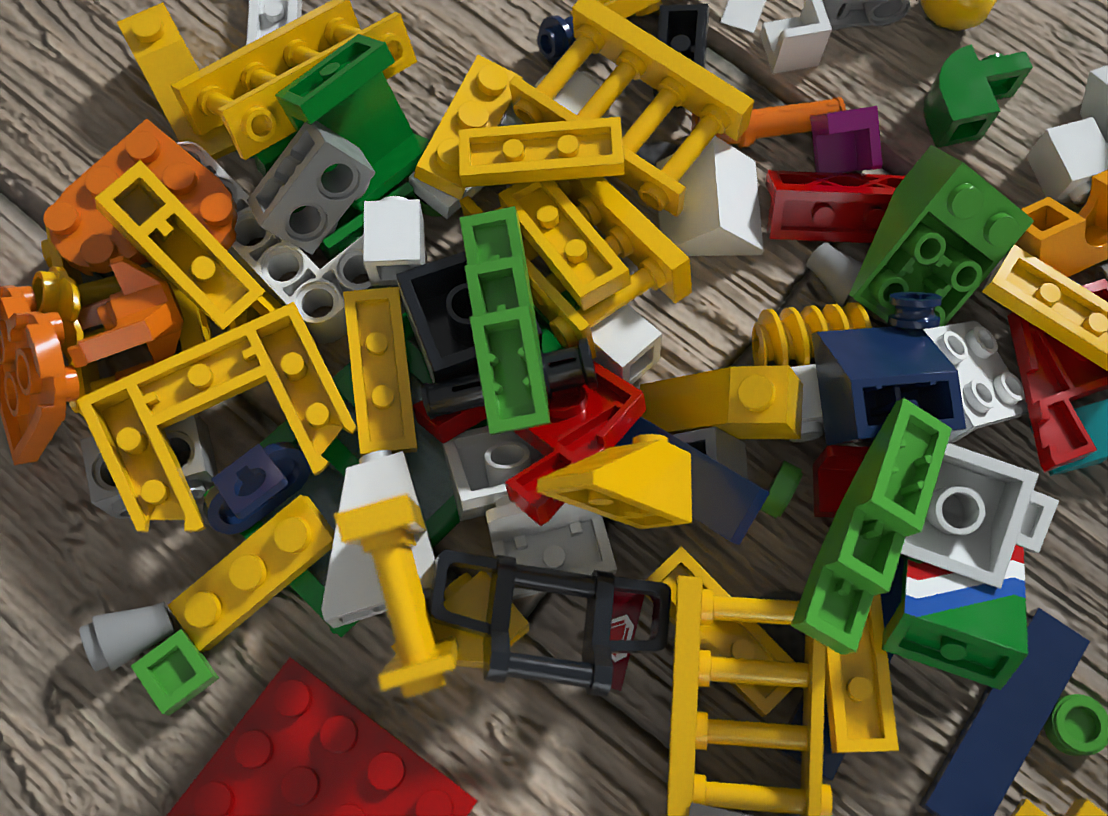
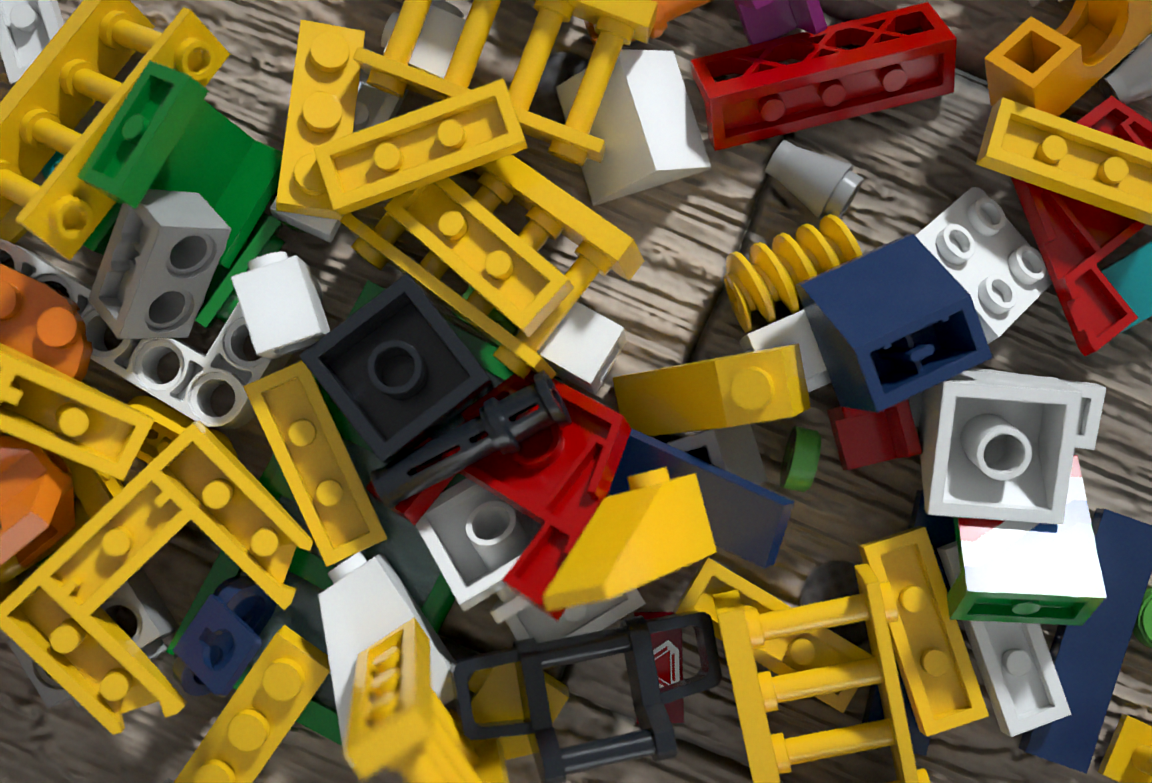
camera: 20 degrees left, 15 degrees up
(504, 322) = (443, 386): bright green slope -> none
(870, 527) = (916, 490): bright green slope -> none
(914, 310) = (905, 219): dark blue bush -> none
(929, 714) = (1012, 665): none -> white plate
(938, 237) = (912, 119): bright green slope -> none

